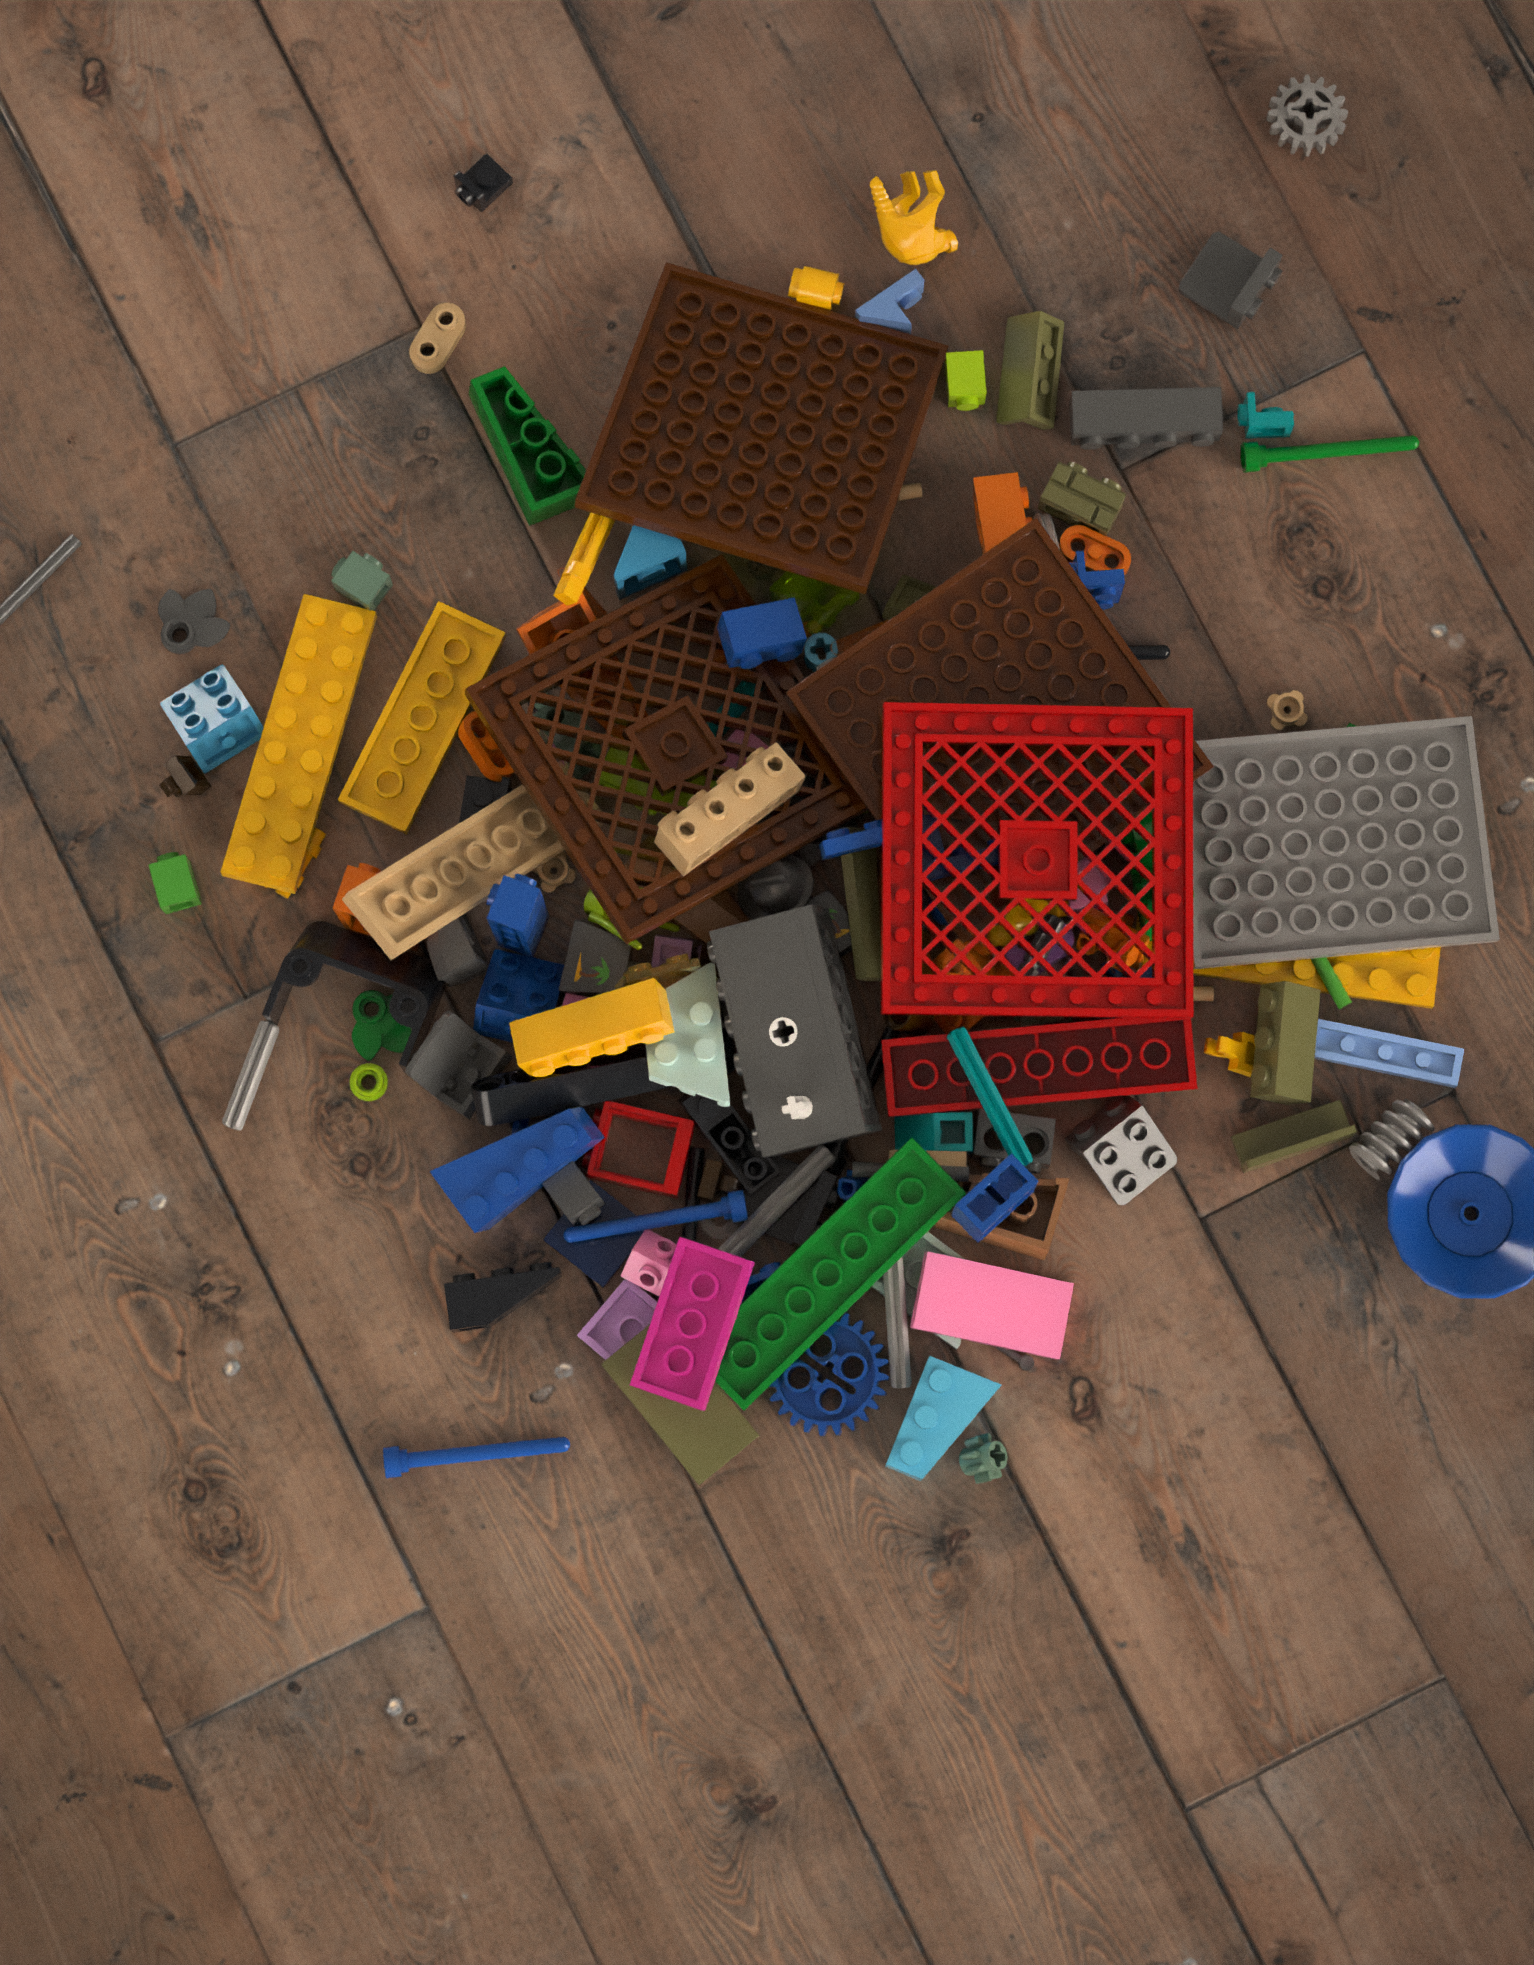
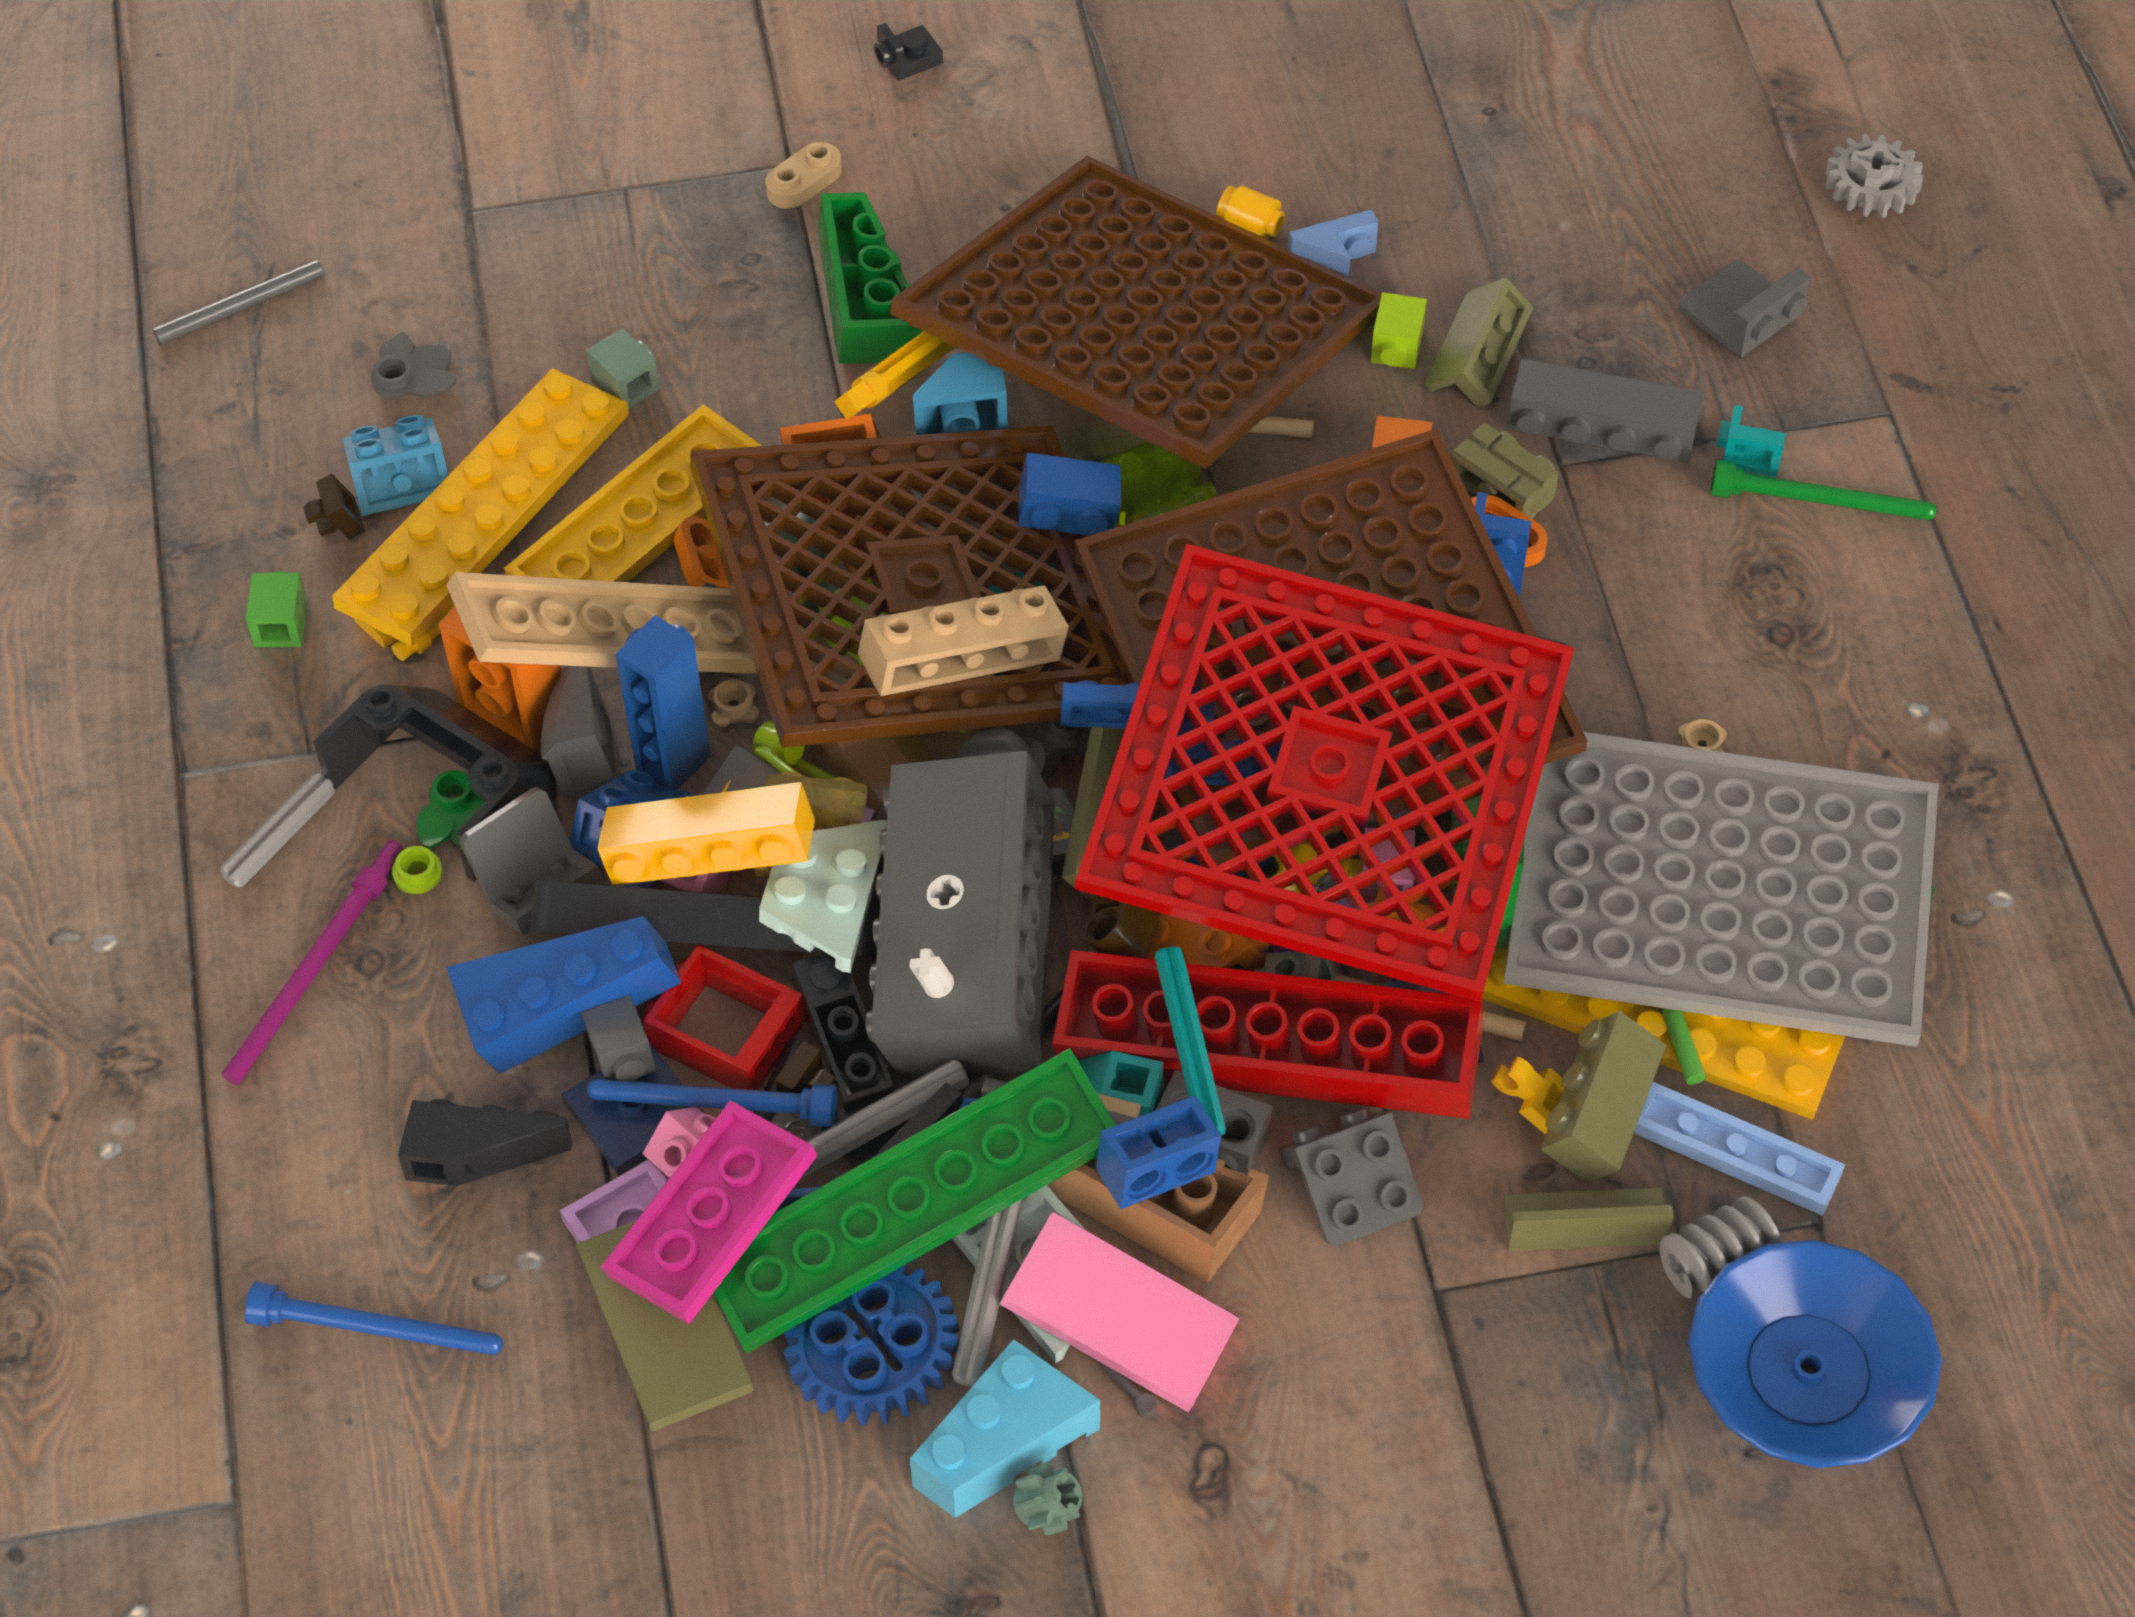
camera: 15 degrees right, 25 degrees down
(337, 1104) = (366, 887): none -> magenta bar
(912, 235) = (1375, 173): yellow piece -> none

